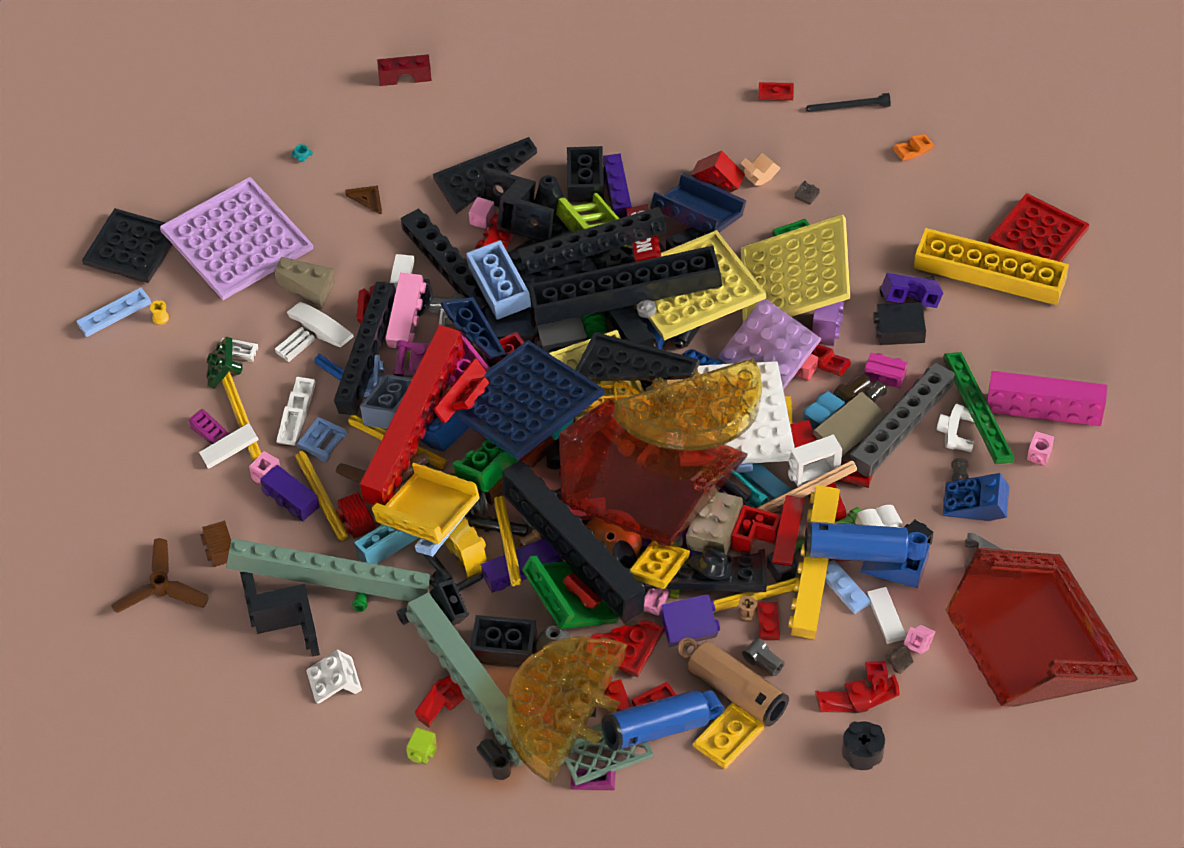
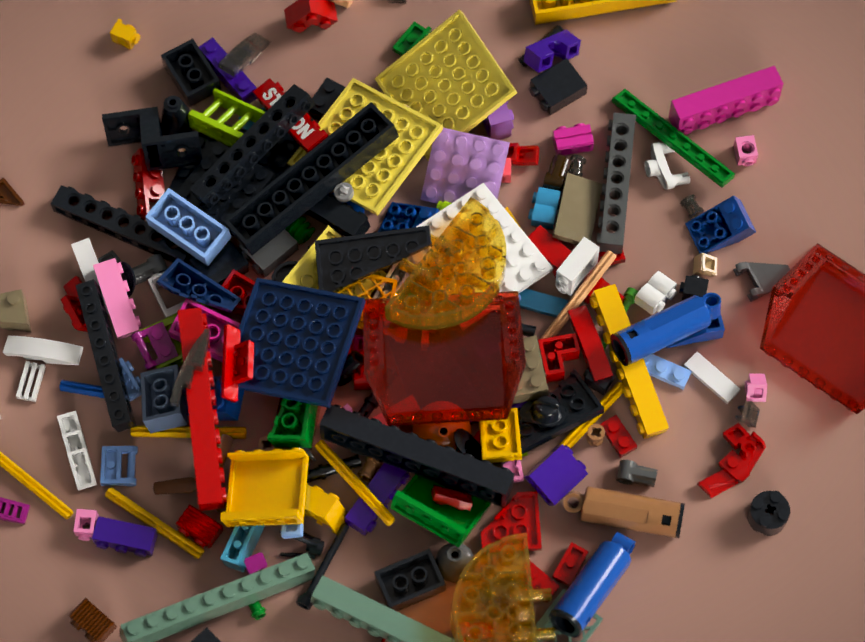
camera: 30 degrees left, 15 degrees up
(228, 445) = (38, 518): white tile -> none
(380, 556) = (255, 563): none -> magenta slope
(425, 367) = (194, 361): none -> clear smoke slope
(450, 601) = (341, 570): black brick -> none
(463, 182) = (83, 131): black wing -> none
(481, 212) = (121, 160): bright pink brick -> none
(549, 123) = (124, 34): none -> yellow brick
(638, 176) = (243, 54): none -> clear smoke slope
(700, 205) = (315, 56): dark blue panel -> none
(728, 735) = (650, 563): yellow tile -> none
(757, 497) = (537, 320): teal plant -> none
(942, 523) = (705, 265): none -> tan slope

